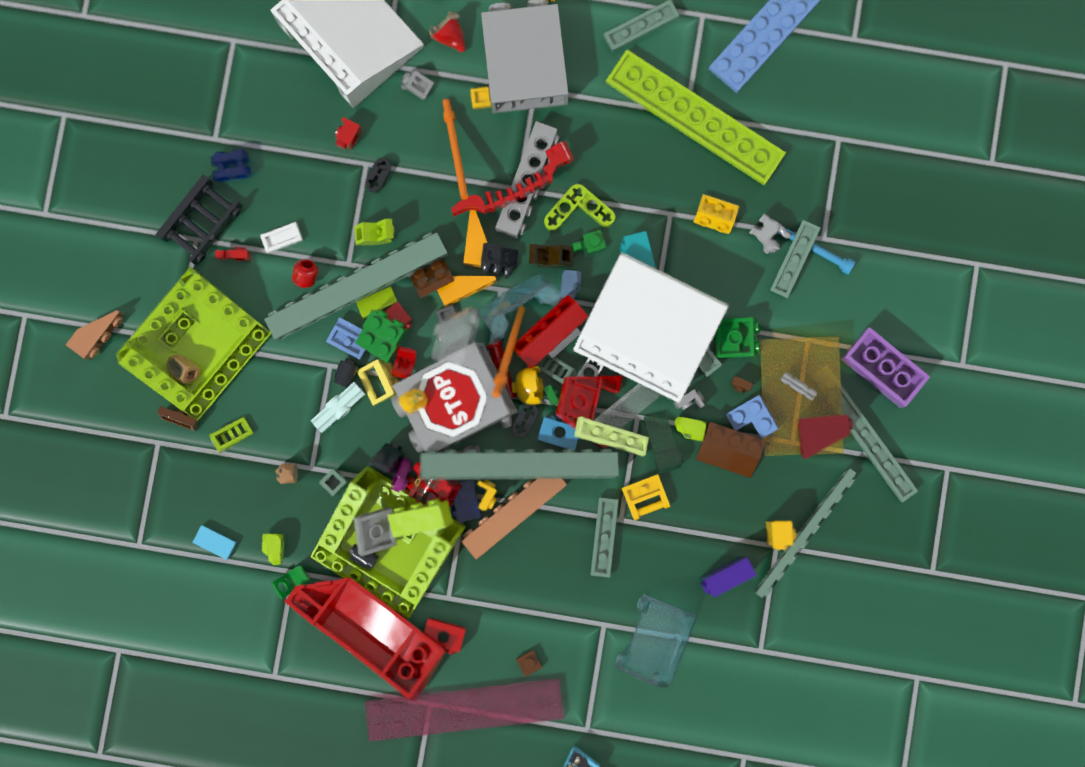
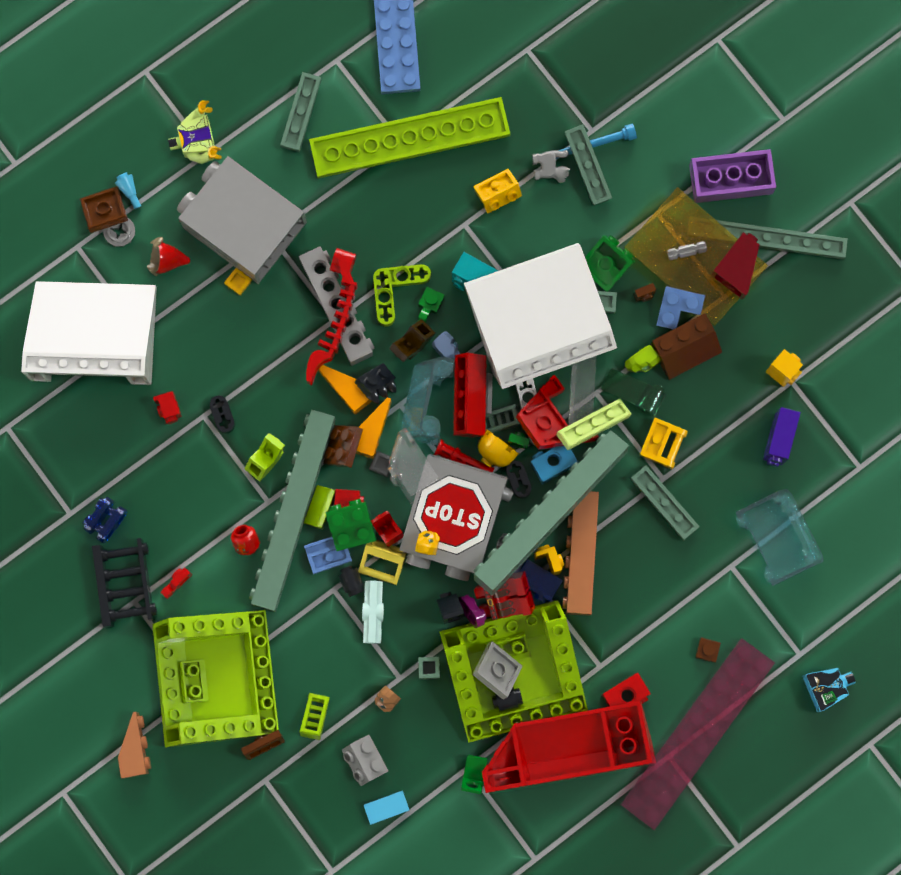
camera: 50 degrees left, 5 degrees down
(182, 369) = (228, 704): medium nougat rock -> none
(232, 497) = (364, 760): none -> light grey bracket
(273, 547) = (434, 764): lime rock -> none
(281, 237) = (198, 533): white tile -> none
(416, 84) = (180, 319): light grey bracket -> none
(420, 518) = (520, 624): lime brick -> none
(449, 118) = (231, 319): orange bar -> none
(501, 378) = (473, 460): orange bar -> none
(686, 400) = (619, 335): light grey bracket -> none
(810, 526) = (800, 342): sand green plate -> none

